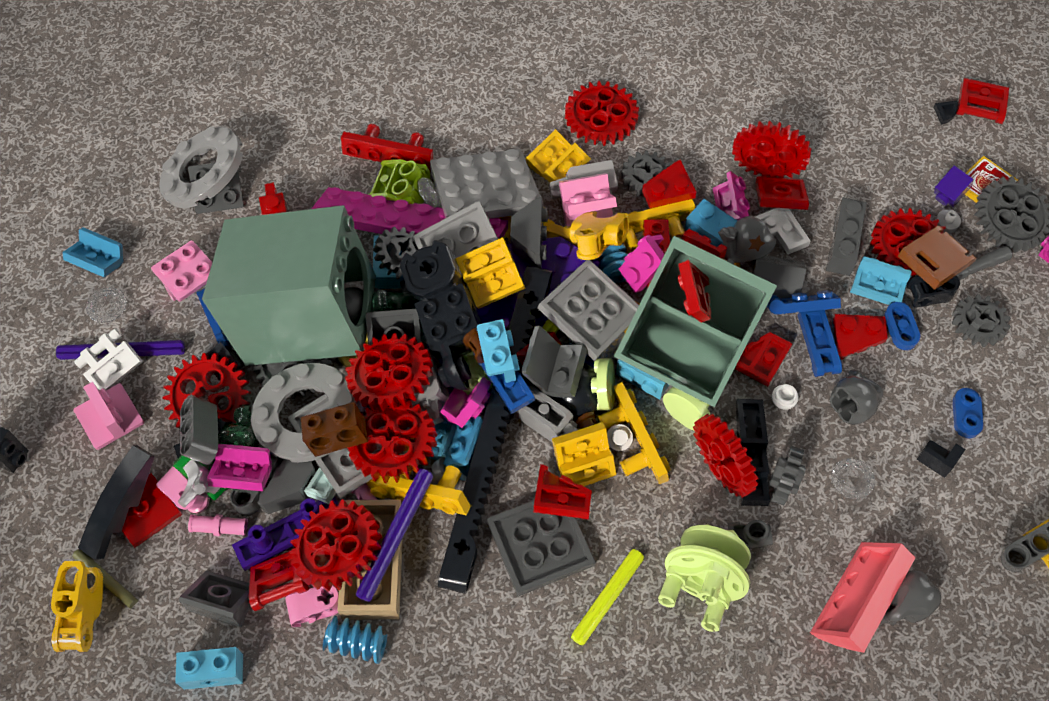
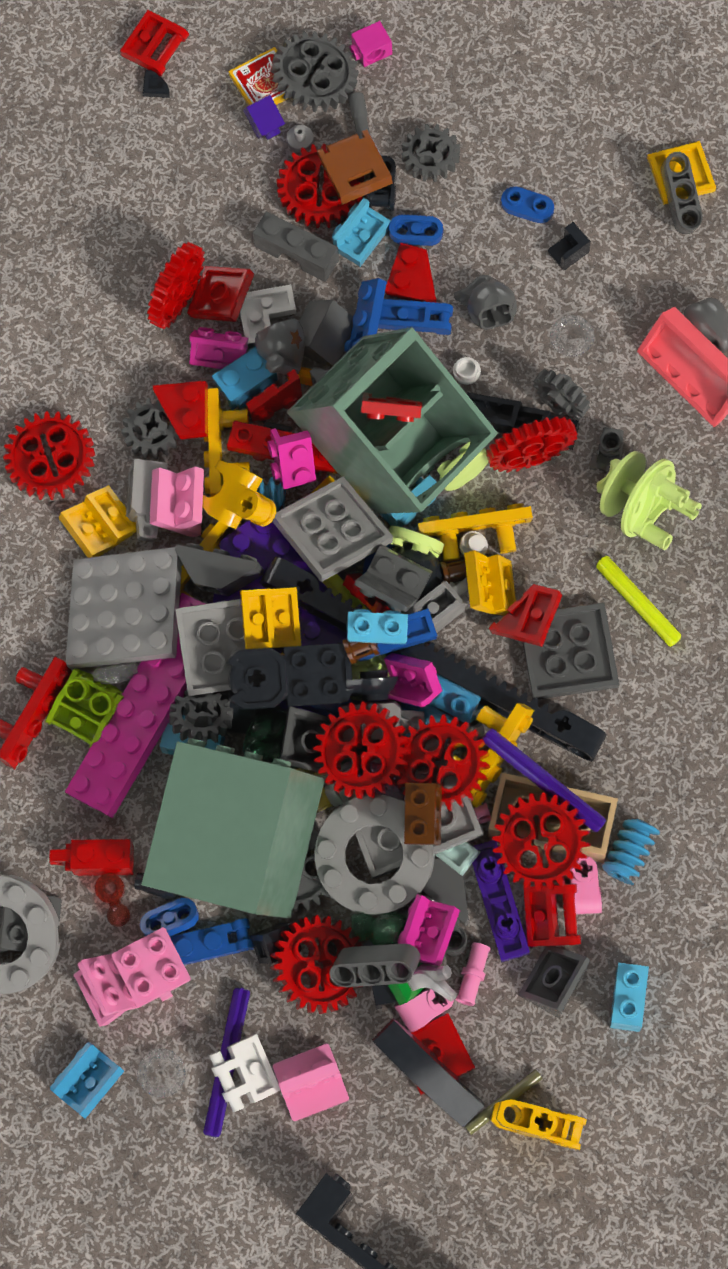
camera: 70 degrees left, 10 degrees up
(165, 240) = (104, 988): none -> bright pink bracket

